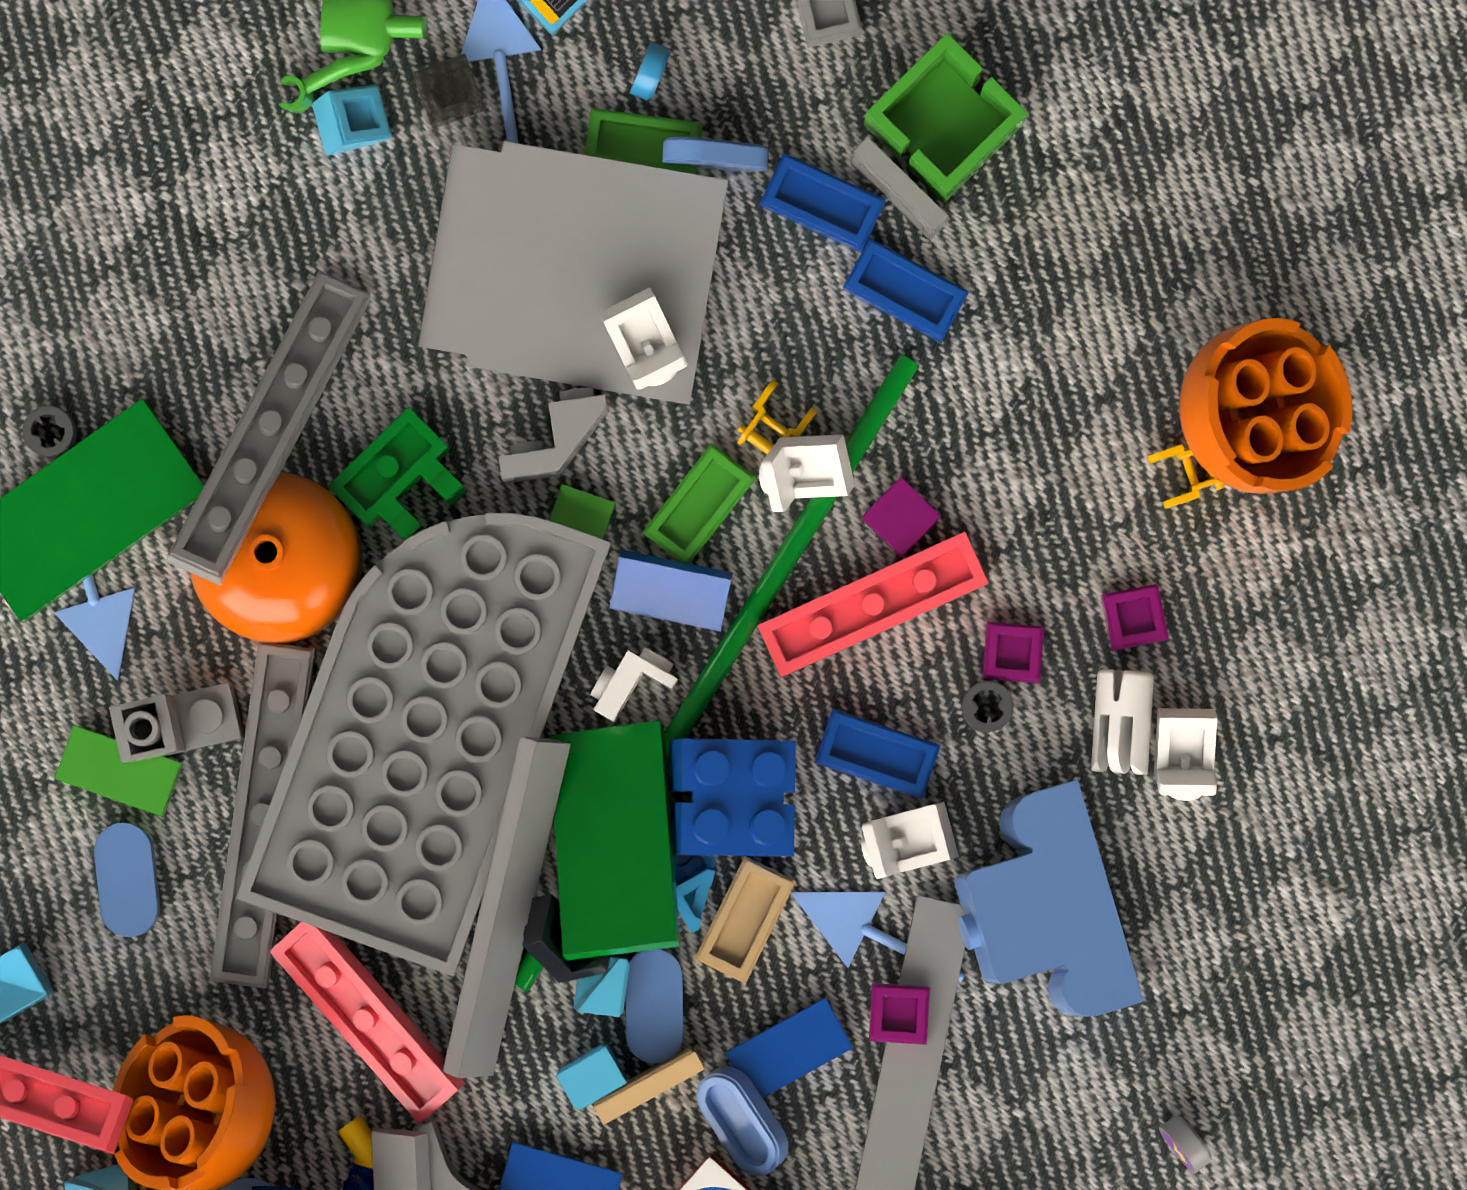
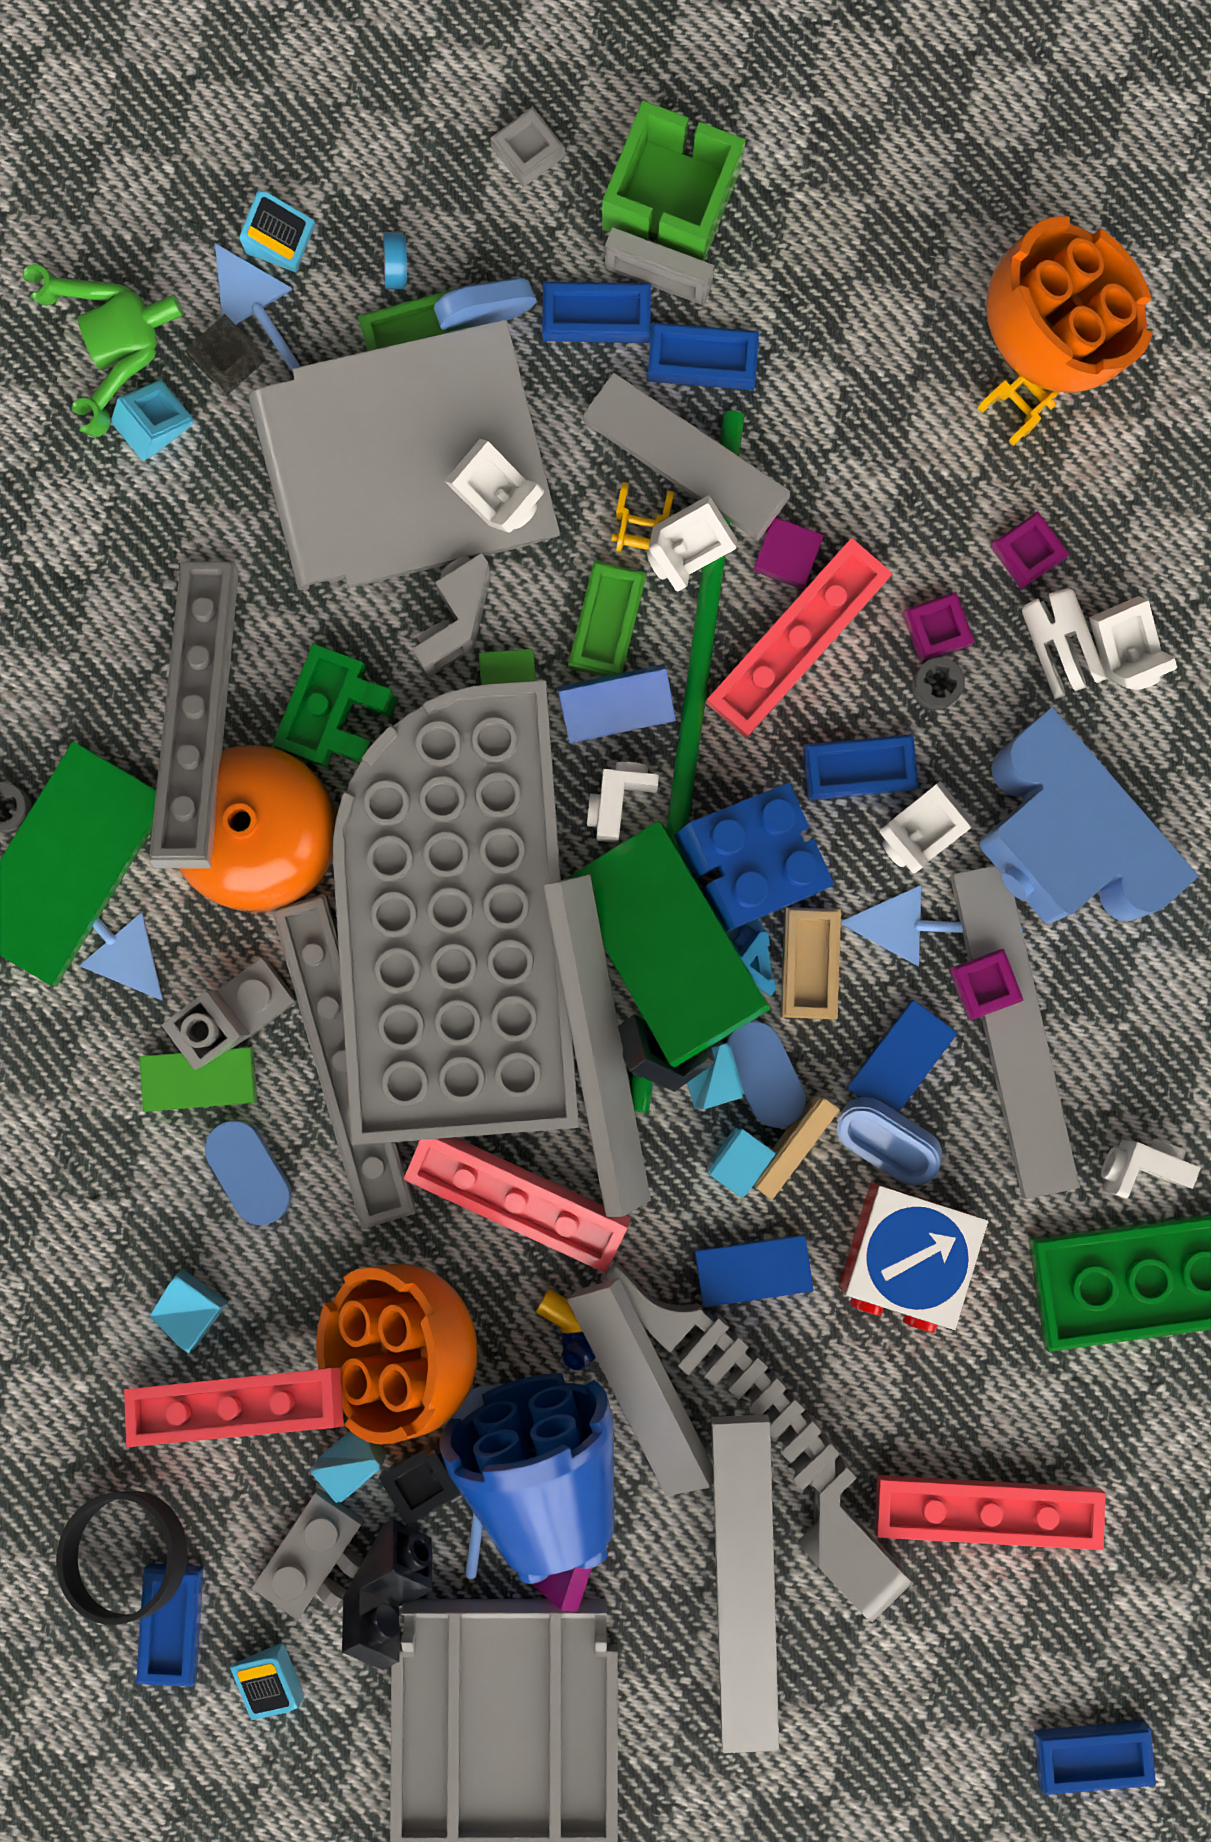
camera: 30 degrees left, 0 degrees up
(842, 383) = (686, 456): none -> light grey tile

